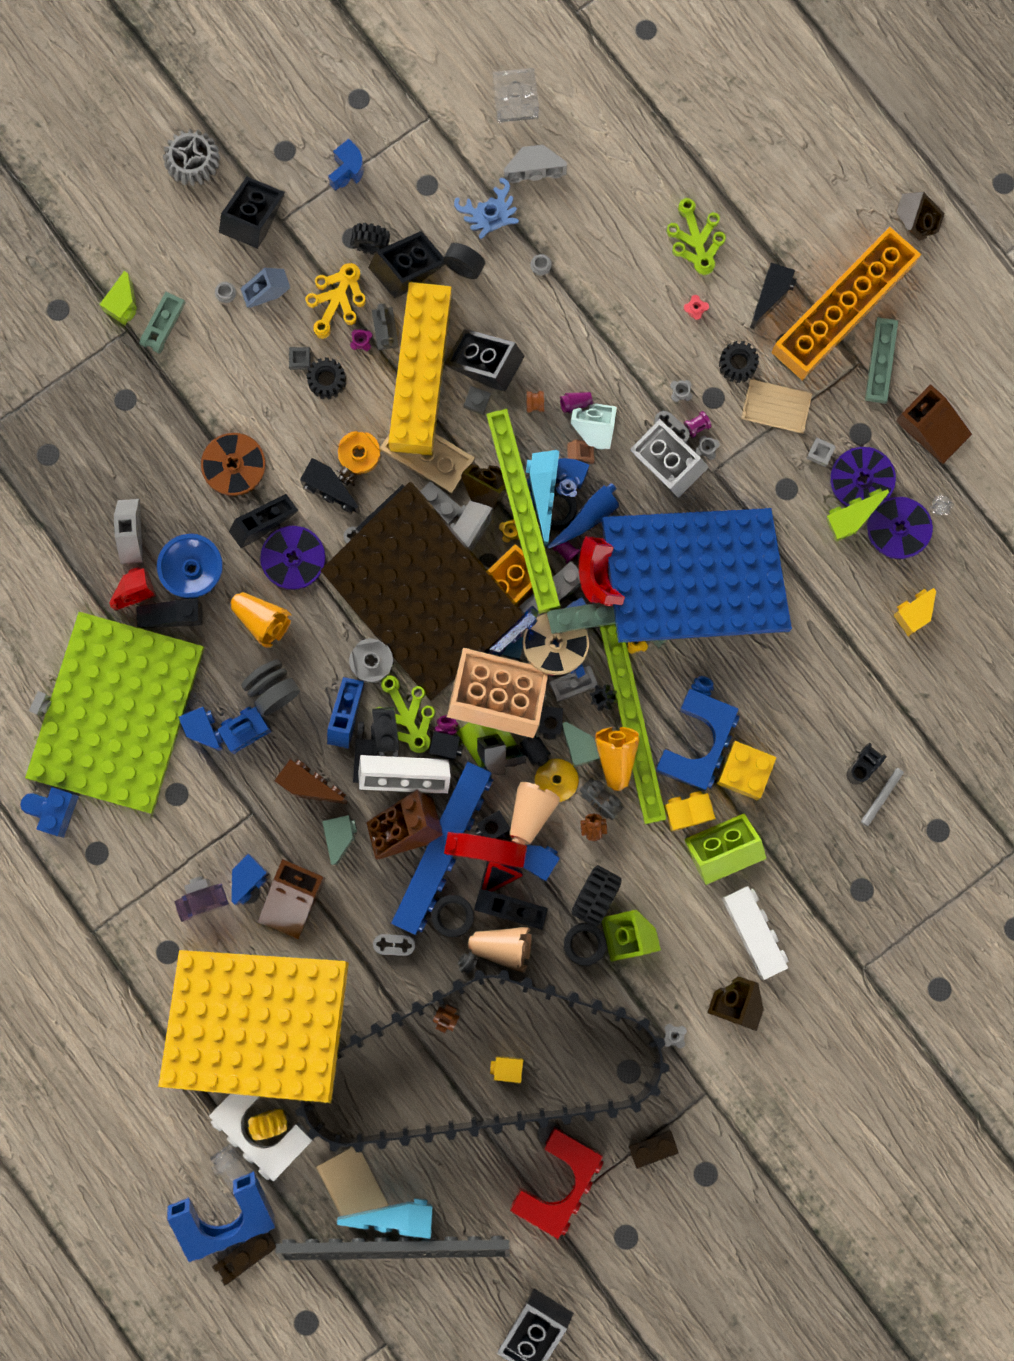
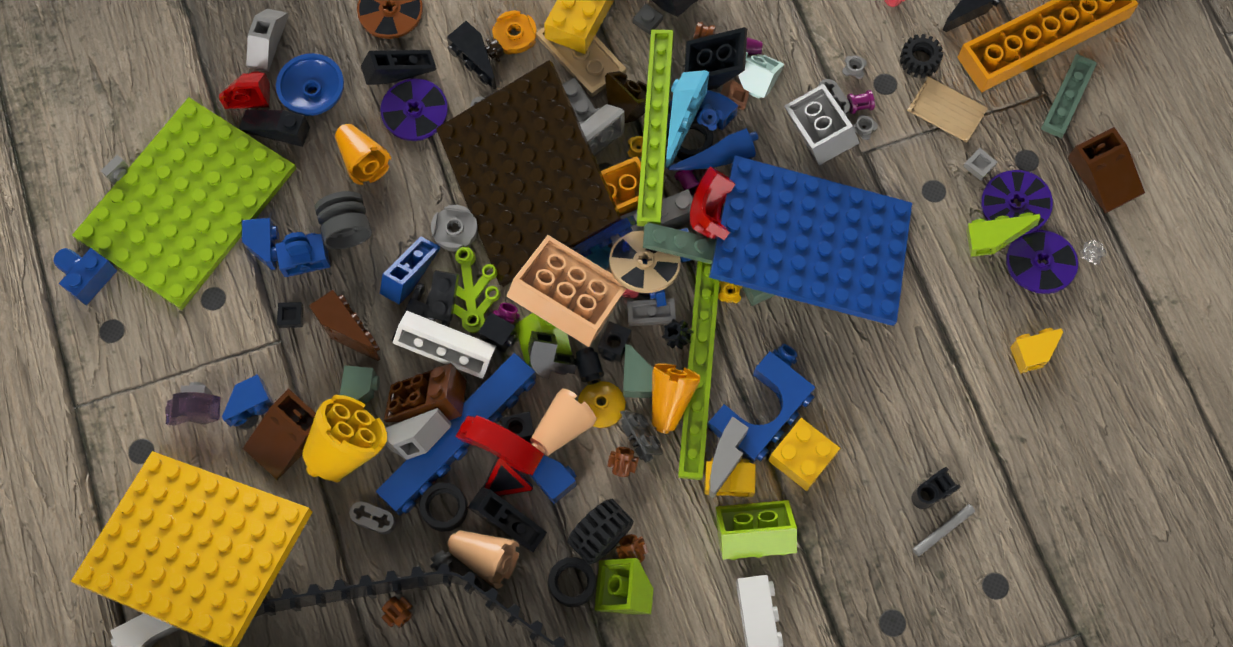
camera: 20 degrees right, 10 degrees down
(253, 788) = (290, 315): none -> black plate
(348, 888) = (342, 438): none -> yellow cone
(408, 863) = (417, 434): none -> light grey slope
(556, 426) = (718, 54): none -> black slope
(626, 900) = (632, 547): none -> dark orange gear
(682, 796) = (726, 454): none -> light grey slope

